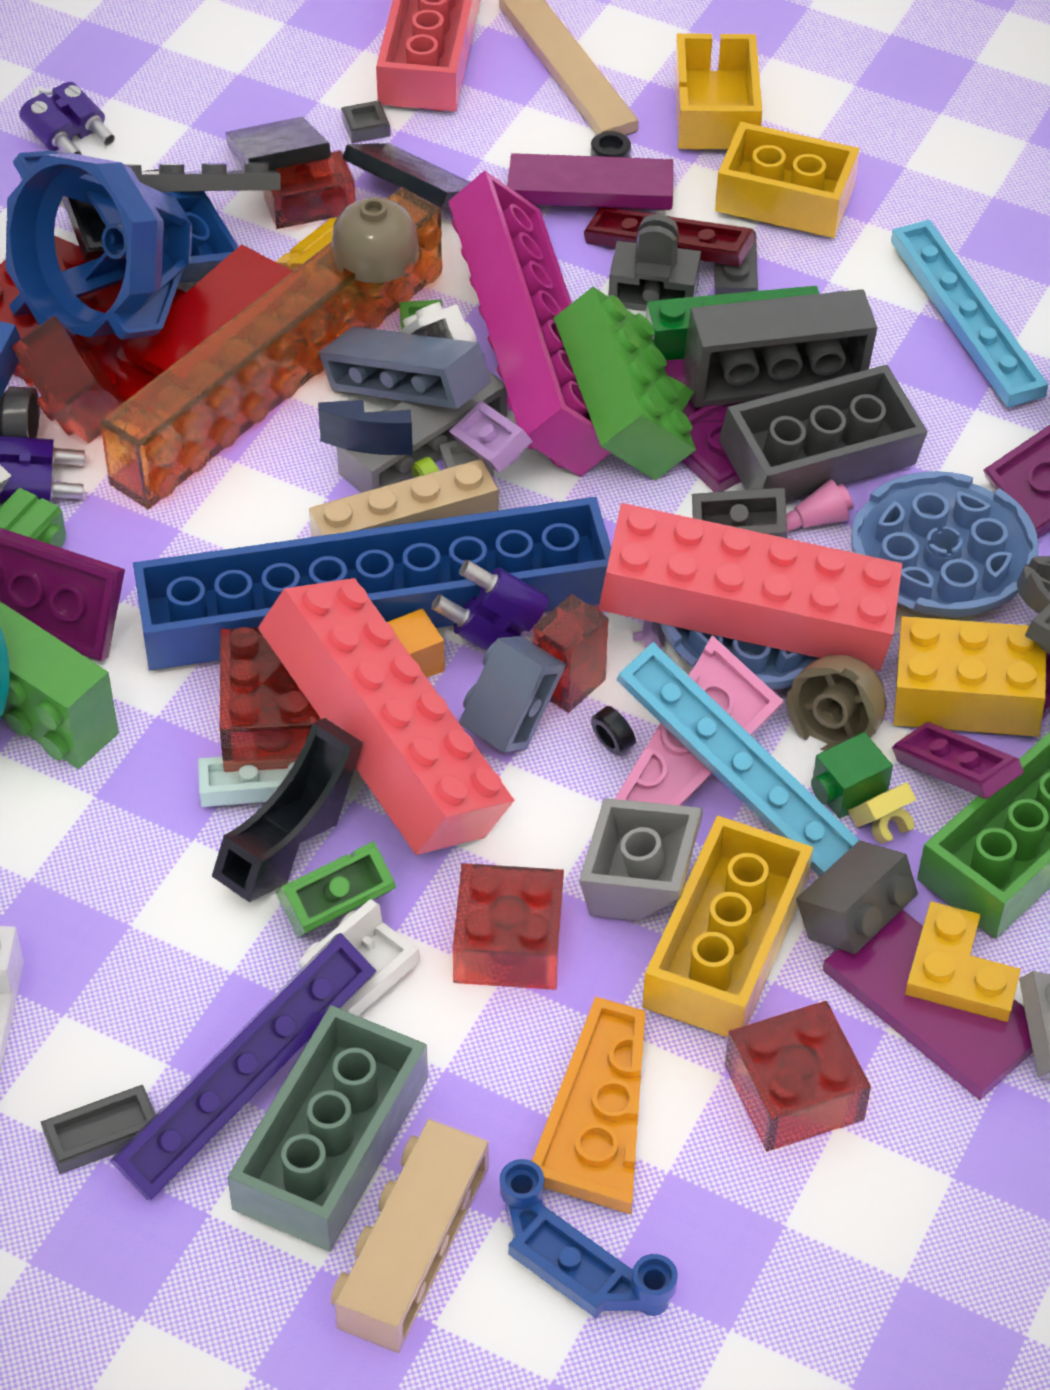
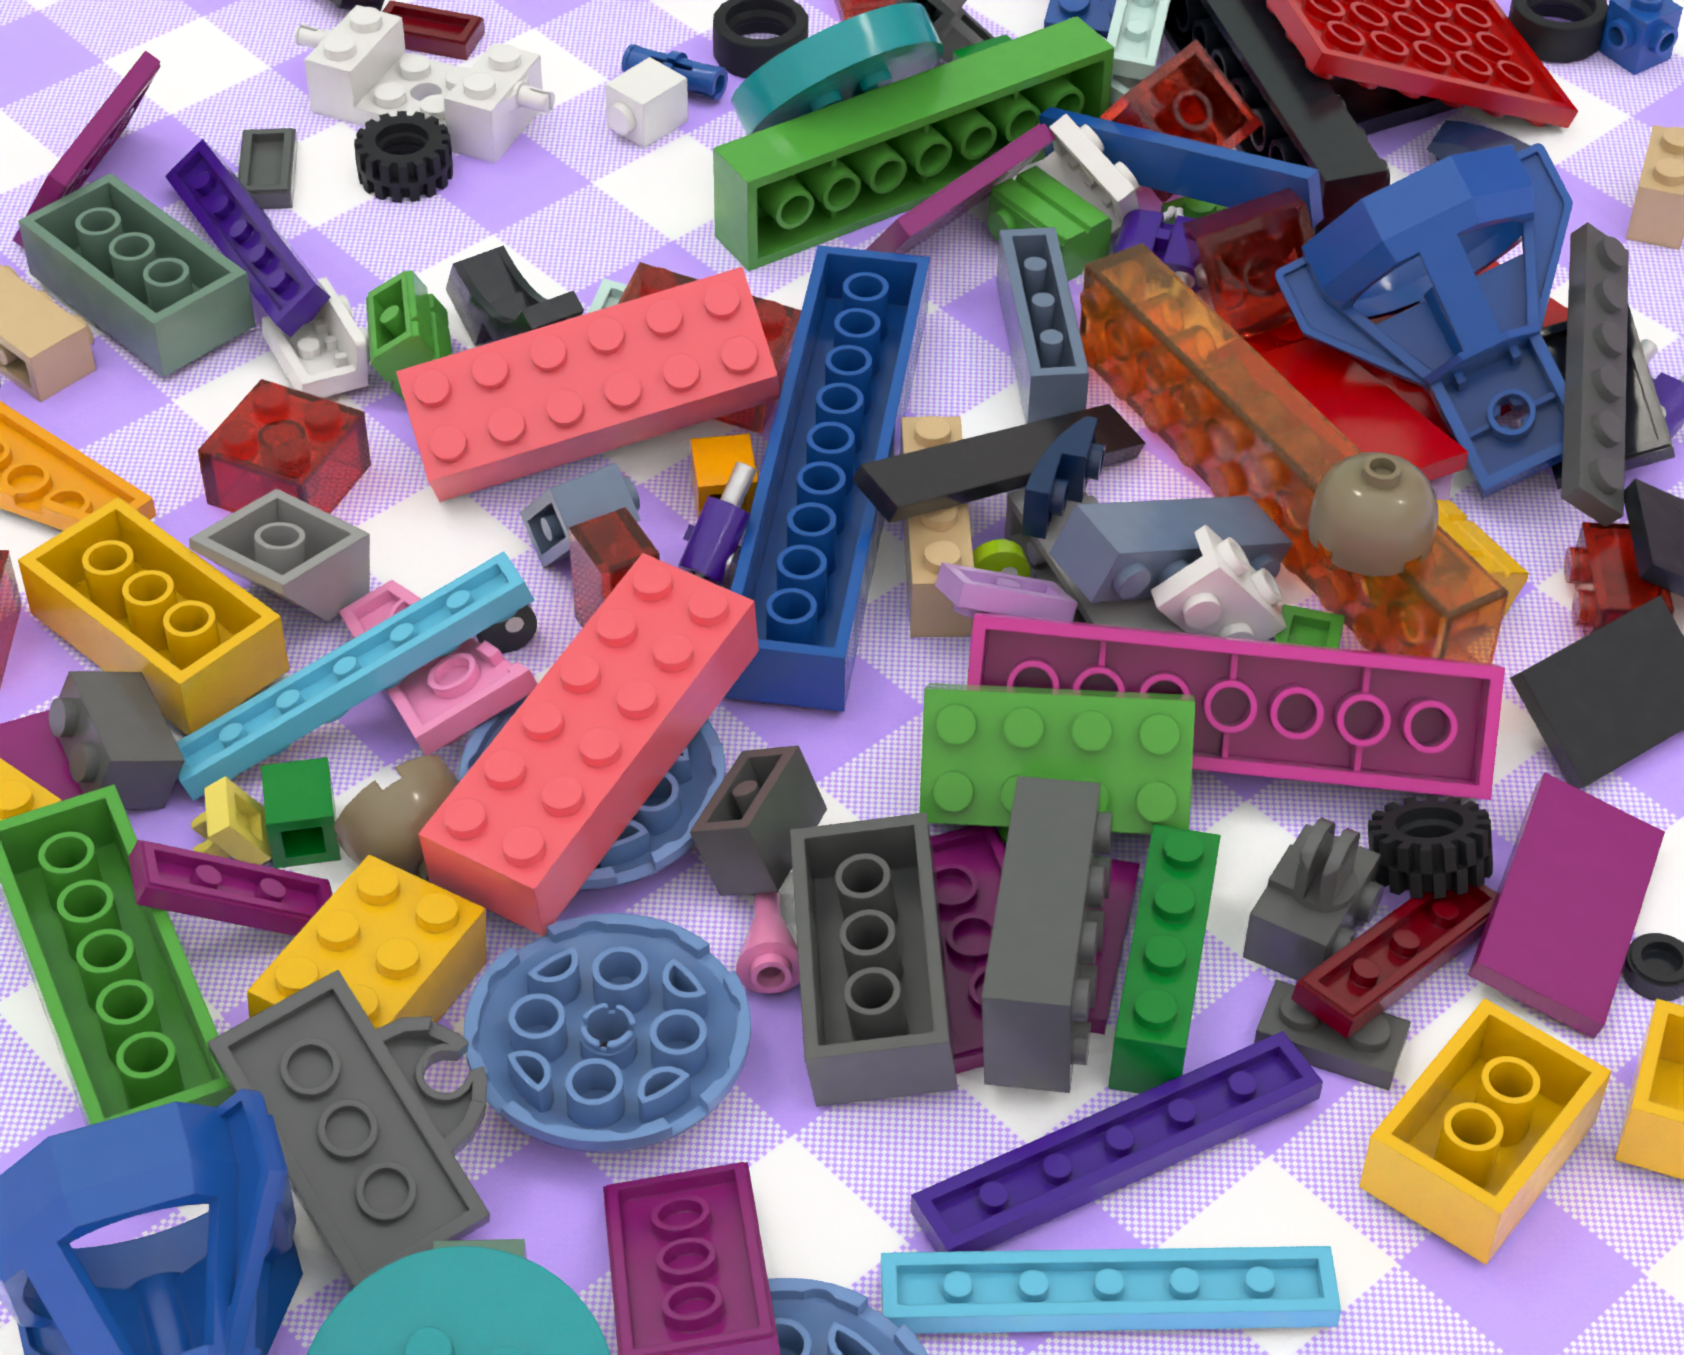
camera: 110 degrees right, 5 degrees down
(54, 988) = (403, 156): none -> black tyre
(163, 504) = (1041, 324): none -> sand blue brick
(168, 1245) = (97, 136): none -> magenta tile
(353, 472) = (981, 464): none -> black tile
(576, 215) = (1431, 846): none -> black tyre
(895, 339) = (1115, 1147): none -> dark purple plate

